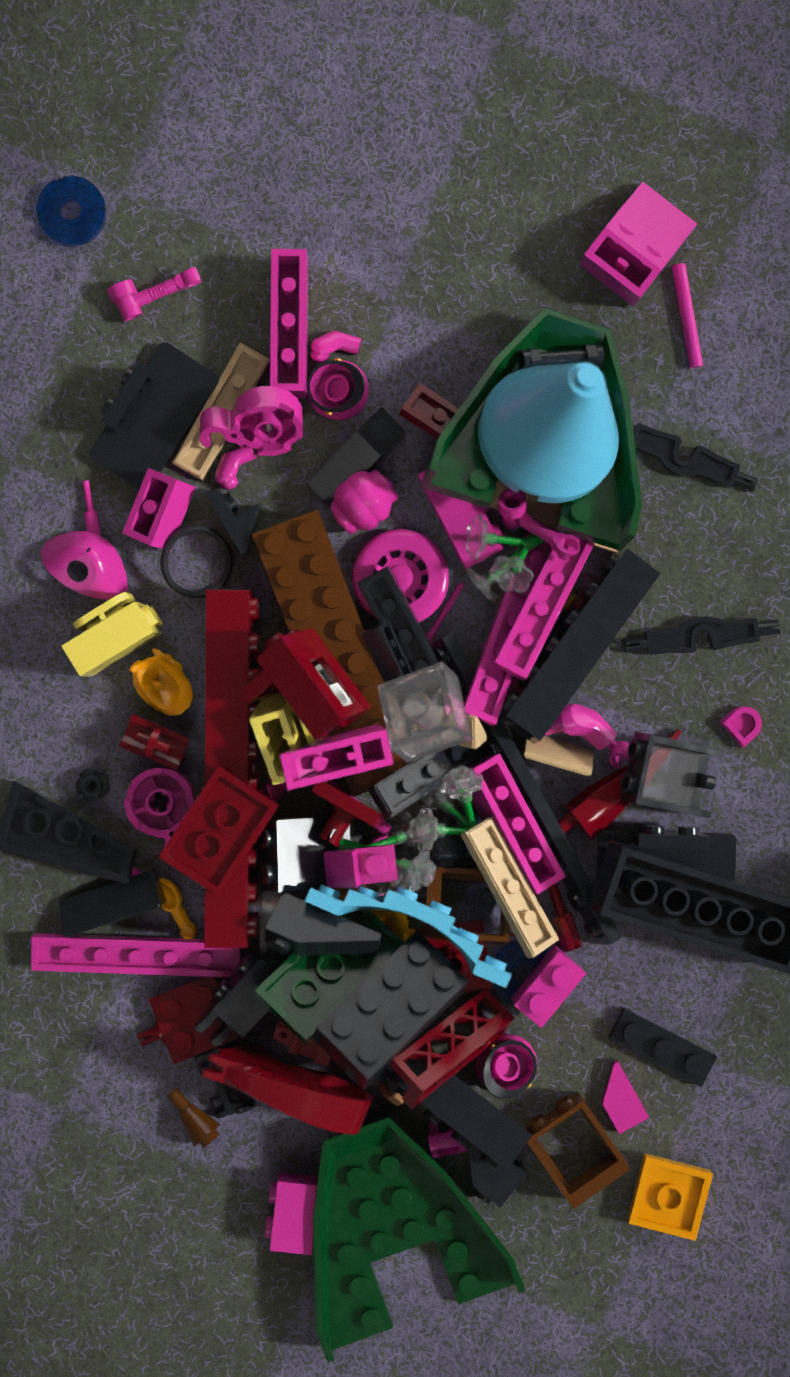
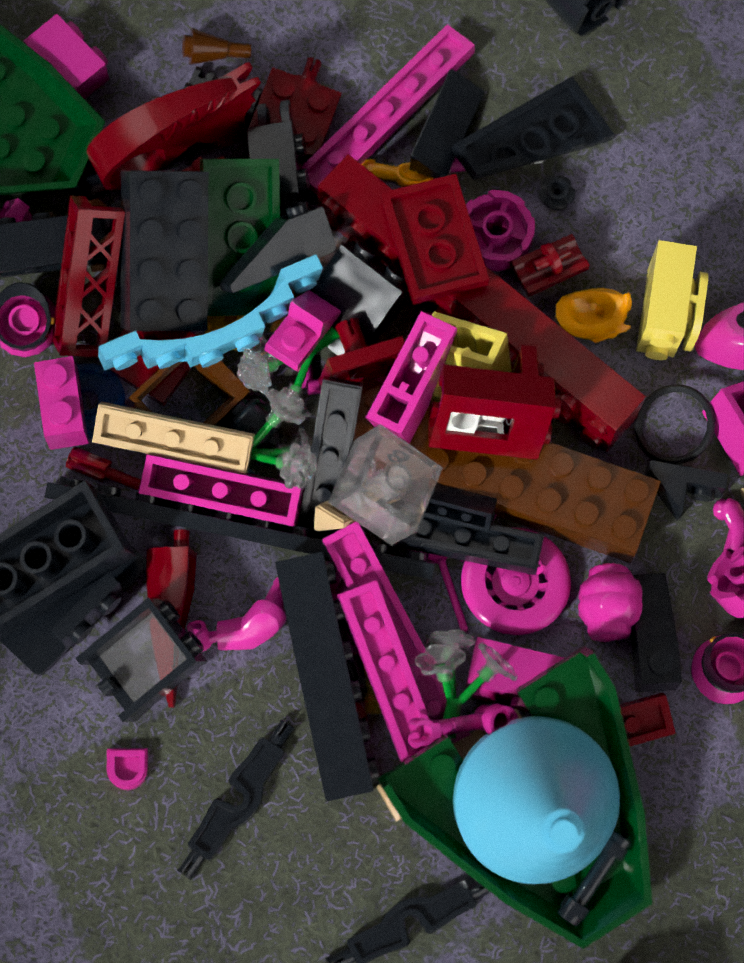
camera: 120 degrees right, 15 degrees down
(560, 755) = (243, 584): tan slope -> none

